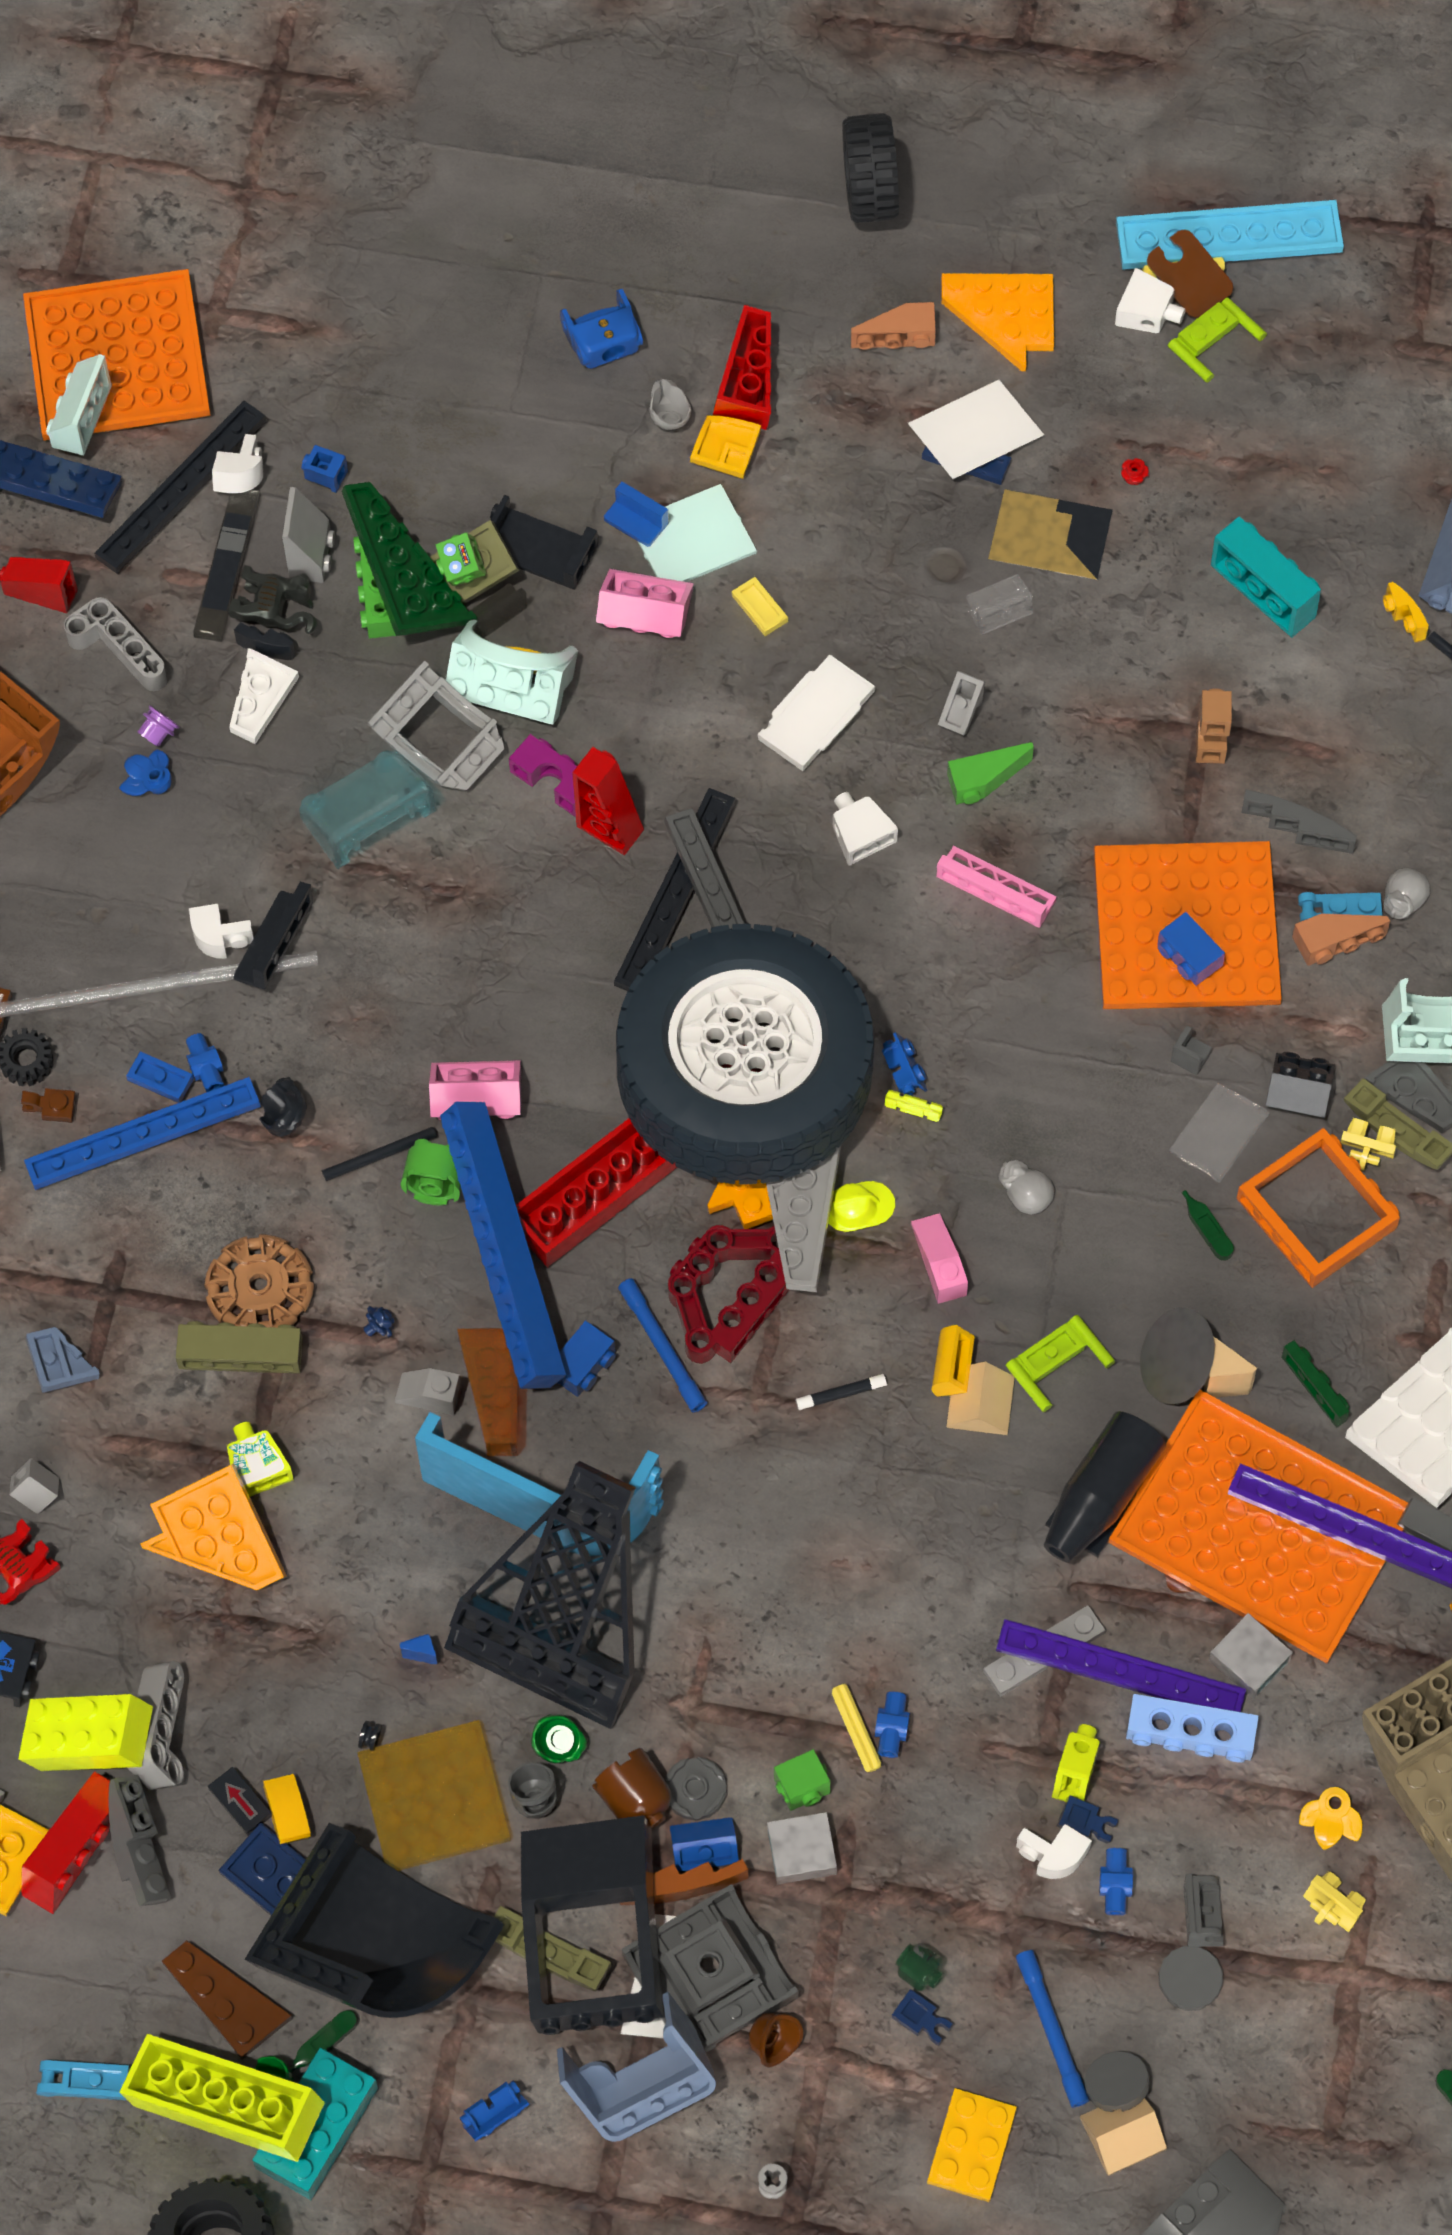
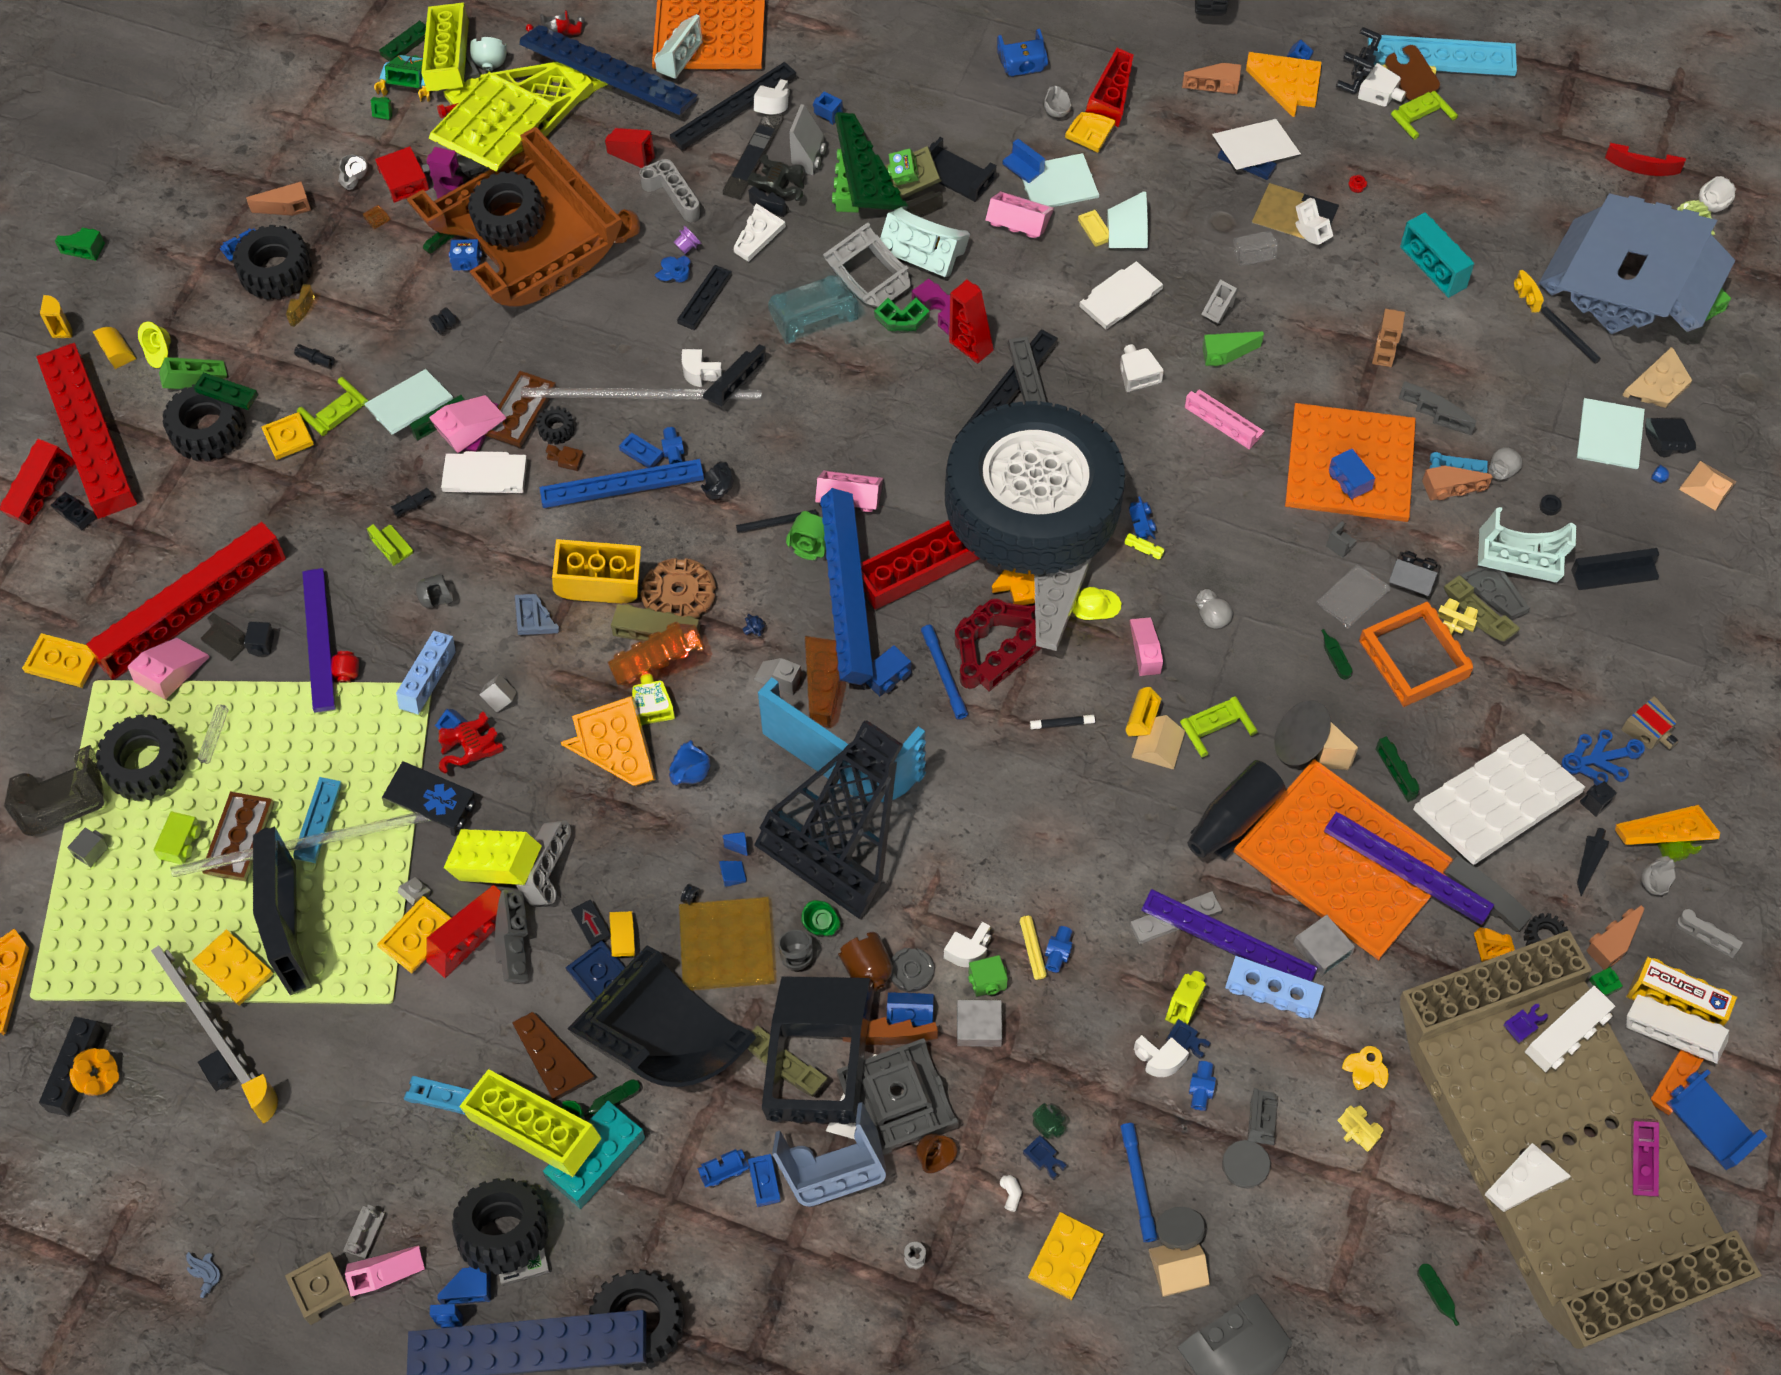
camera: 10 degrees right, 5 degrees down
(67, 711) = (629, 227): none -> dark orange piece
(140, 1282) = (596, 571): none -> yellow brick
(201, 813) = (704, 297): none -> black tile
(250, 1391) = (655, 652): none -> clear orange wedge
(330, 1548) = (689, 765): none -> blue hair
(421, 1693) = (732, 872): none -> blue slope
(491, 806) = (902, 320): none -> green brick
(551, 2116) = (764, 1180): none -> blue plate
(765, 1750) = (963, 950): none -> white brick
(808, 594) = (1128, 223): none -> light aqua slope
(888, 2069) = (1011, 1185): none -> white arm
(1018, 260) = (1300, 50): none -> blue slope
(1076, 554) = (1310, 224): none -> white brick
(1119, 272) = (1363, 62): none -> black plate

